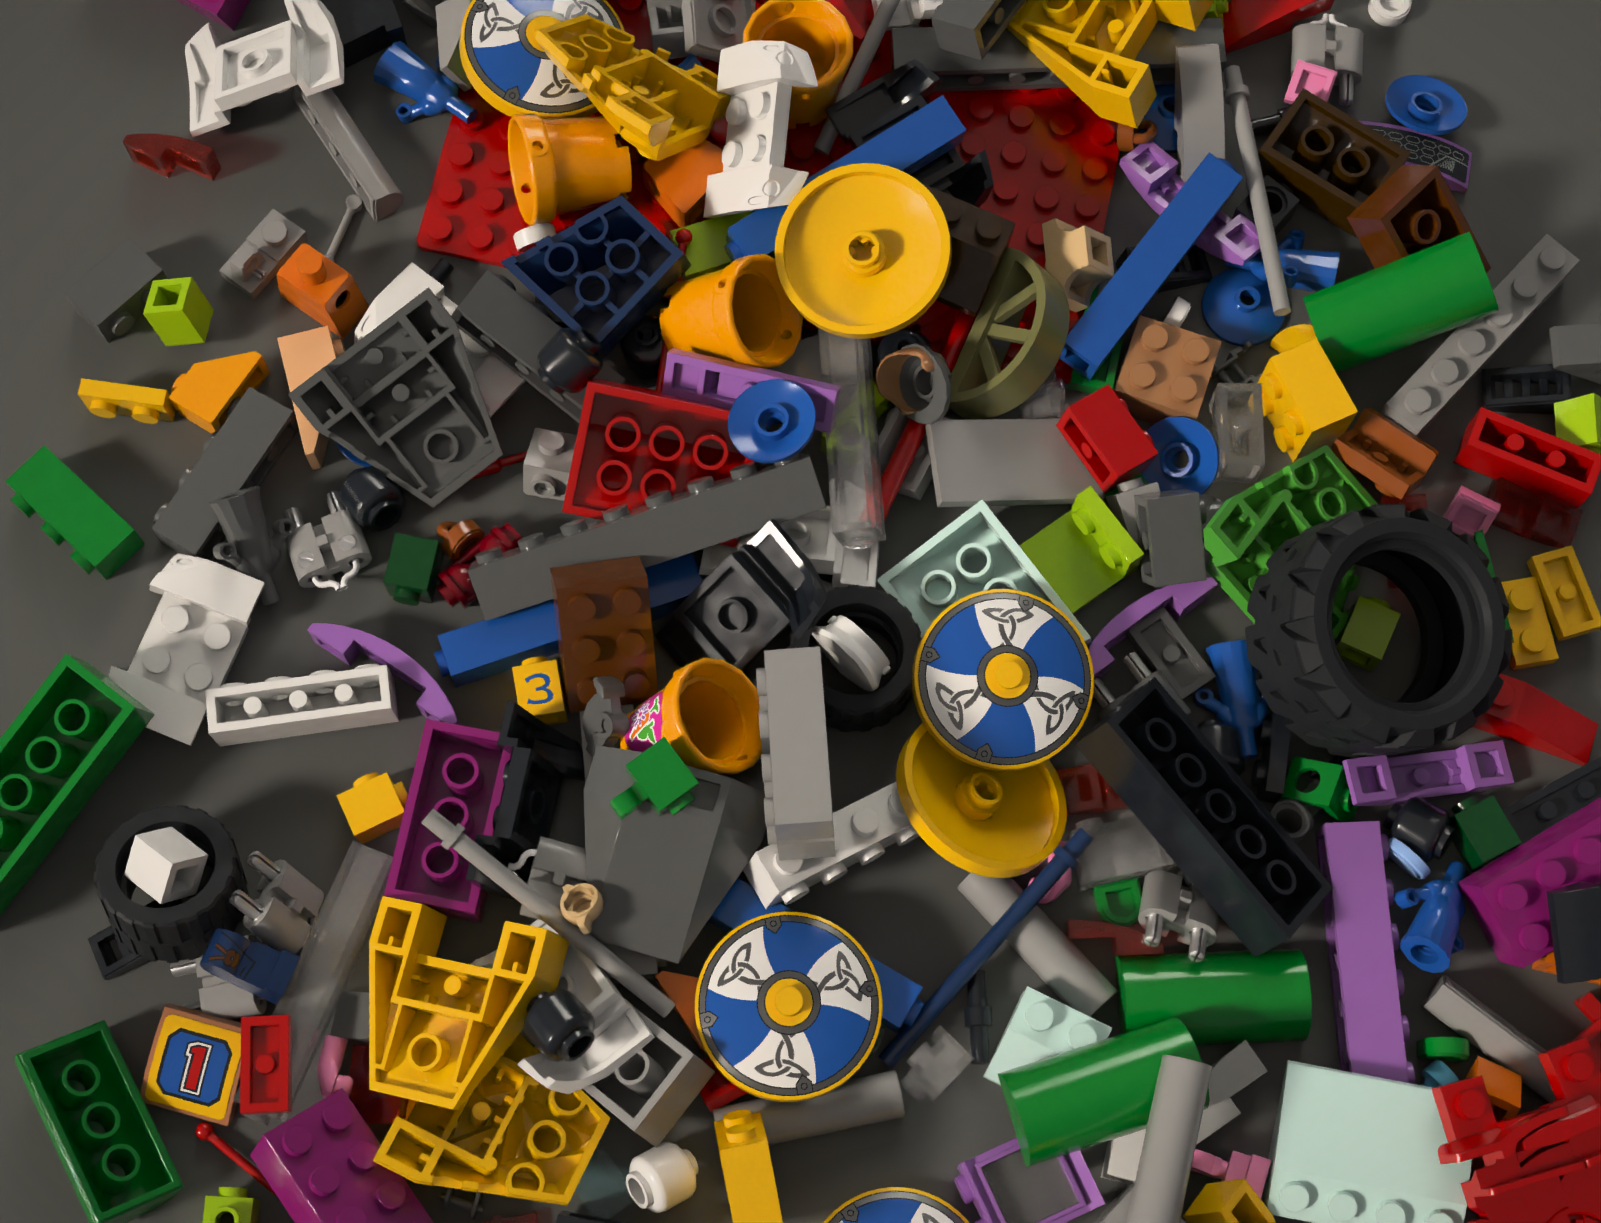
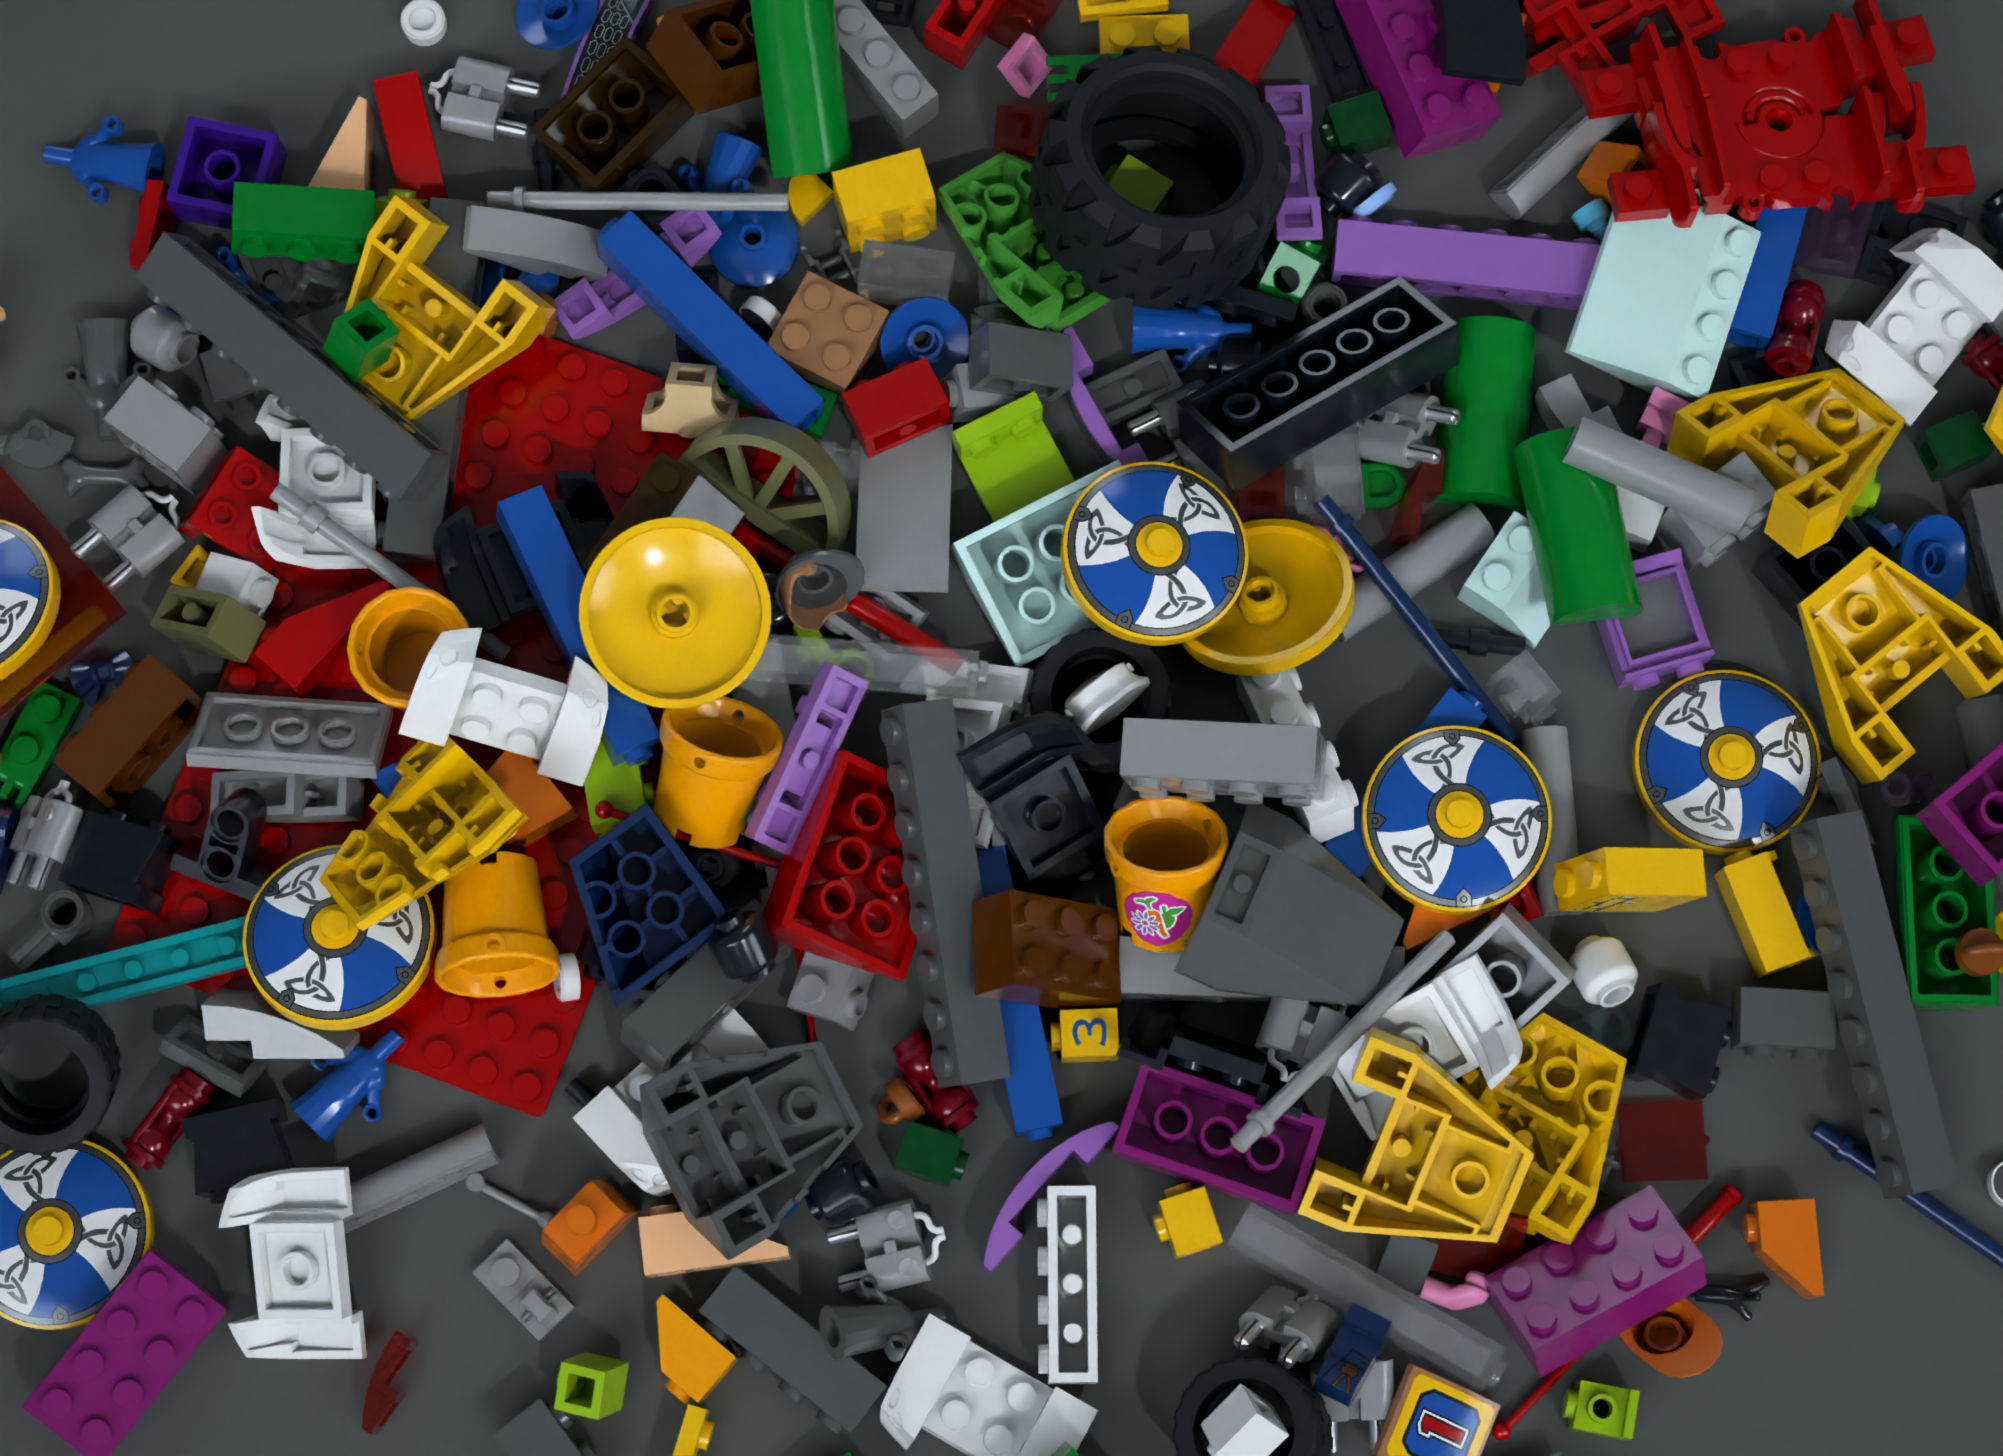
camera: 80 degrees left, 5 degrees up
(266, 1065) = (1456, 1348): red plate -> none
(559, 1025) = (1462, 1039): black head -> none
(581, 905) = (1342, 1004): tan piece -> none
(603, 715) = (1138, 963): dark grey piece -> none
(659, 779) = (1240, 899): green brick -> none
(766, 405) = (830, 742): blue dish -> none
(1312, 78) = (516, 120): bright pink tile -> none
(1385, 454) = (953, 133): dark orange bracket -> none
(1436, 925) = (1441, 184): blue piece -> none
(1443, 1048) = (1562, 208): green tile -> none

